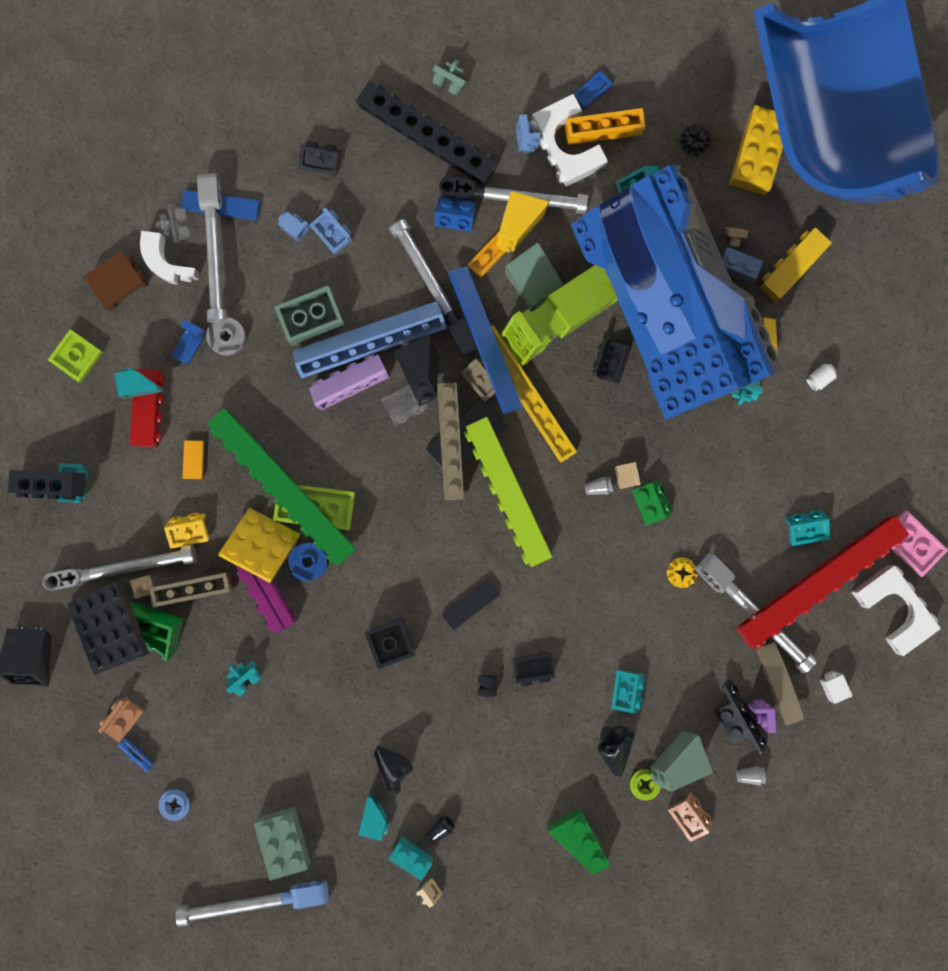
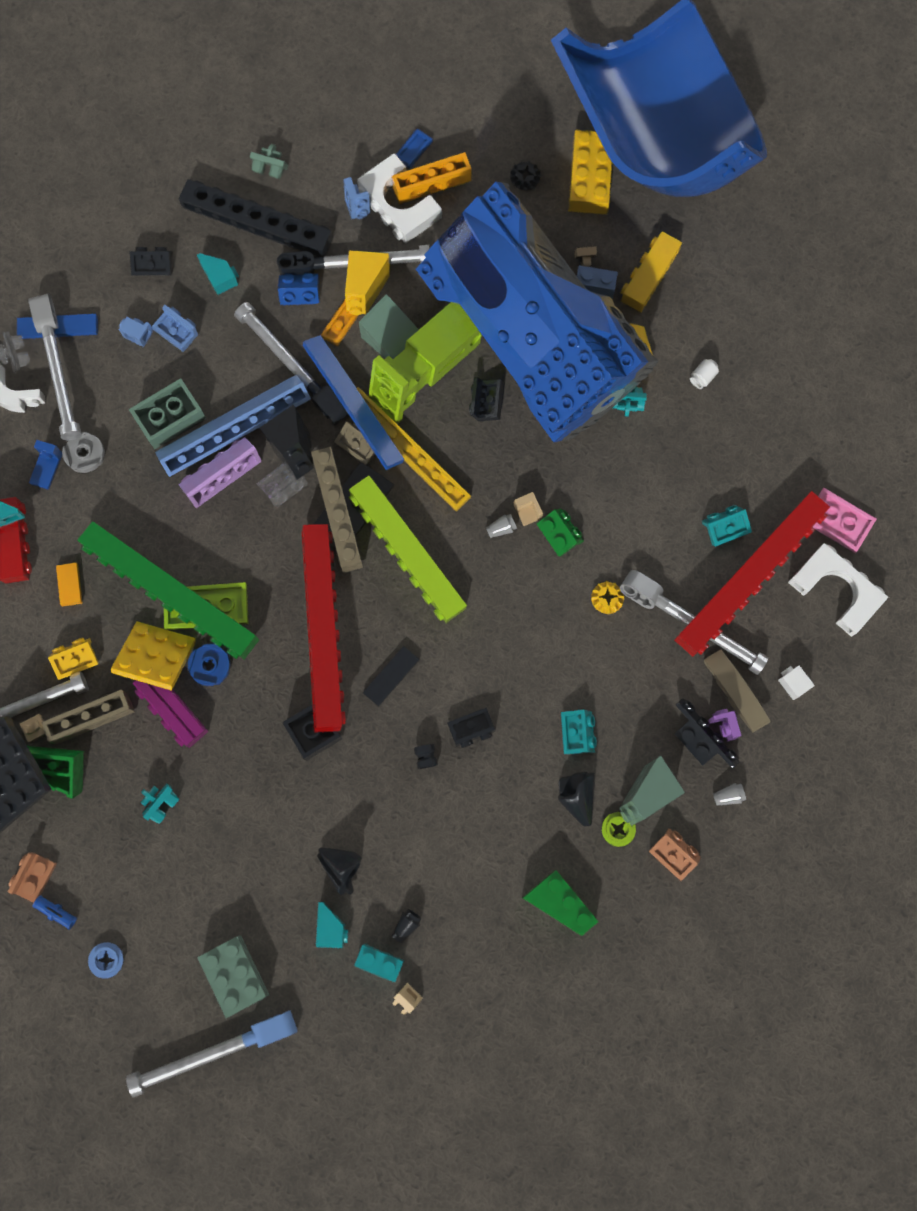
camera: 15 degrees left, 10 degrees down
(382, 183) = (219, 273): none -> teal slope
(416, 552) = (321, 628): none -> red brick

